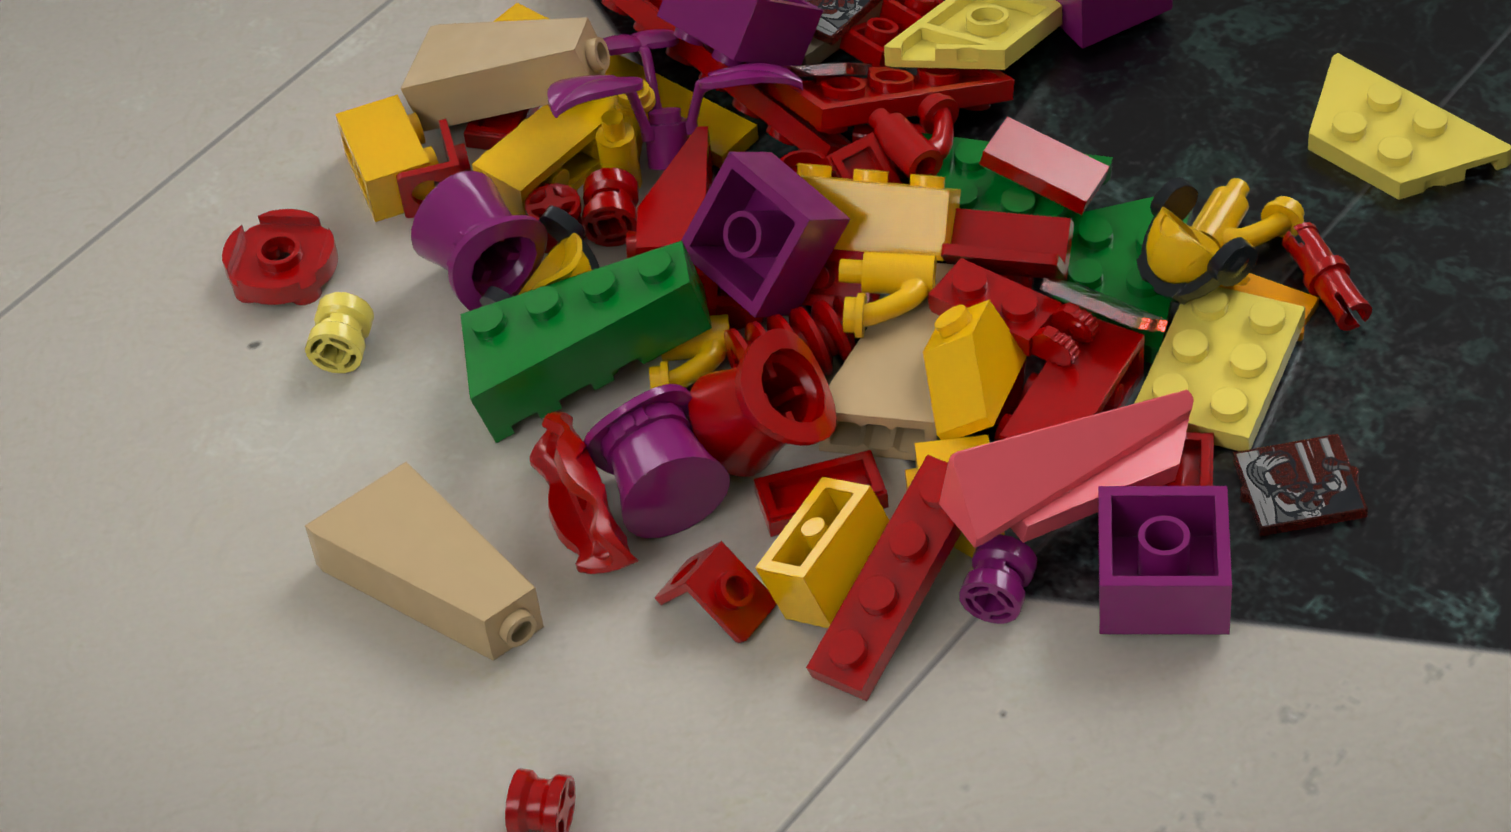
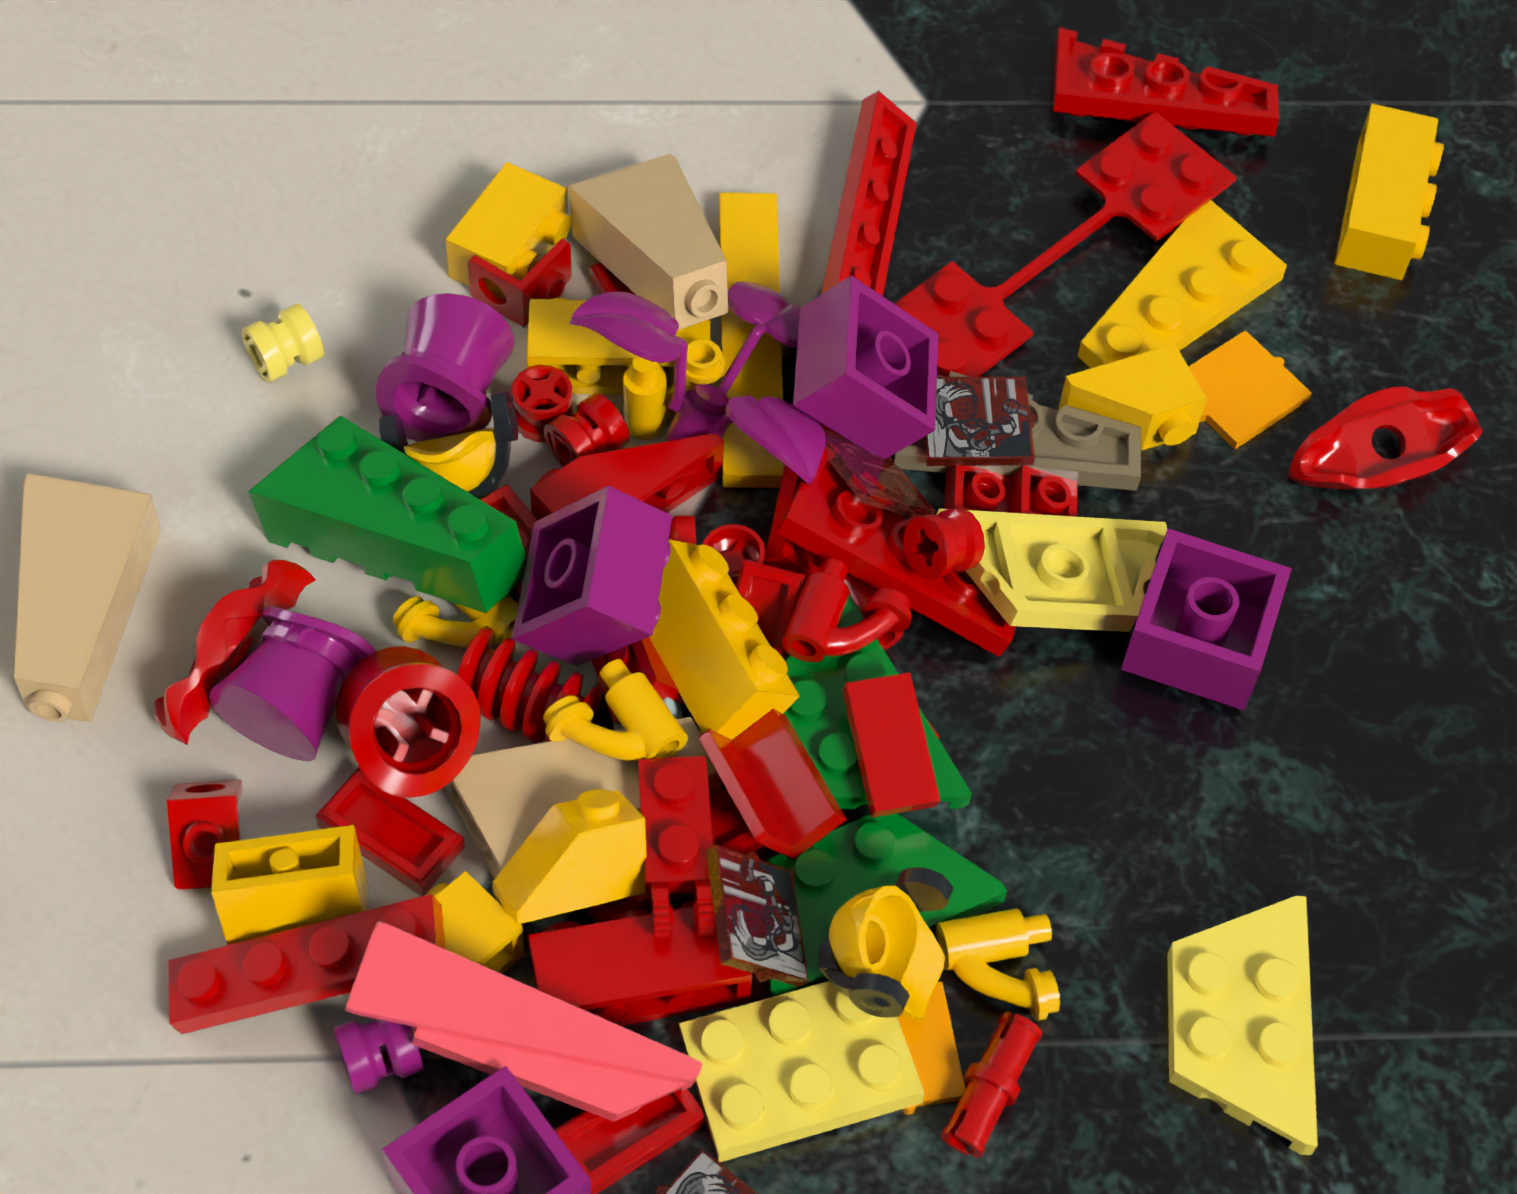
camera: 40 degrees right, 10 degrees up
(295, 279) = (344, 268): red plate -> none
(924, 41) = (943, 543): none -> red wheel

